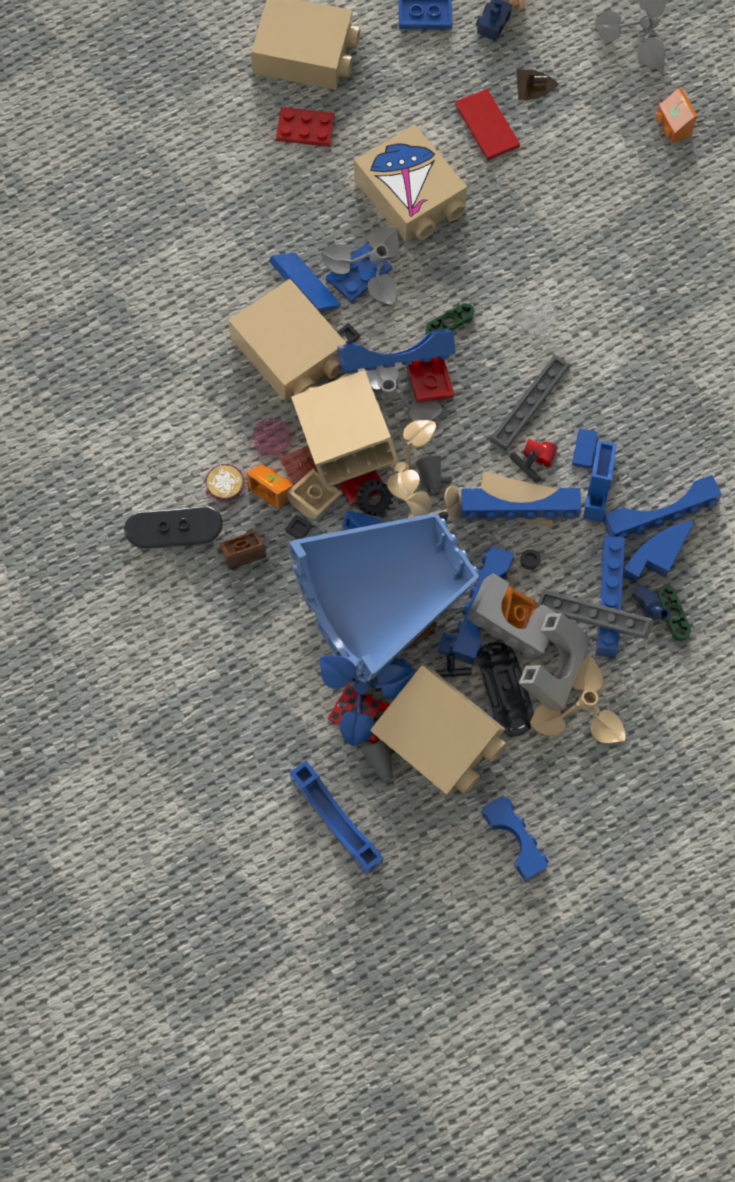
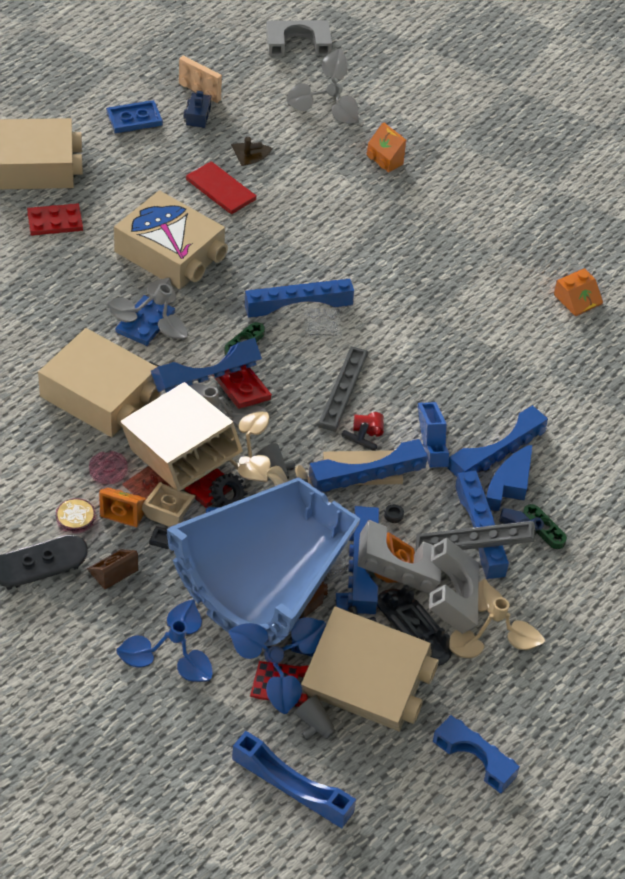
camera: 20 degrees left, 20 degrees down
(287, 673) = (182, 620): none -> blue plant
(292, 267) = (78, 324): blue tile -> none
(489, 280) = (266, 300): none -> blue arch
(584, 448) = (407, 413): blue tile -> none

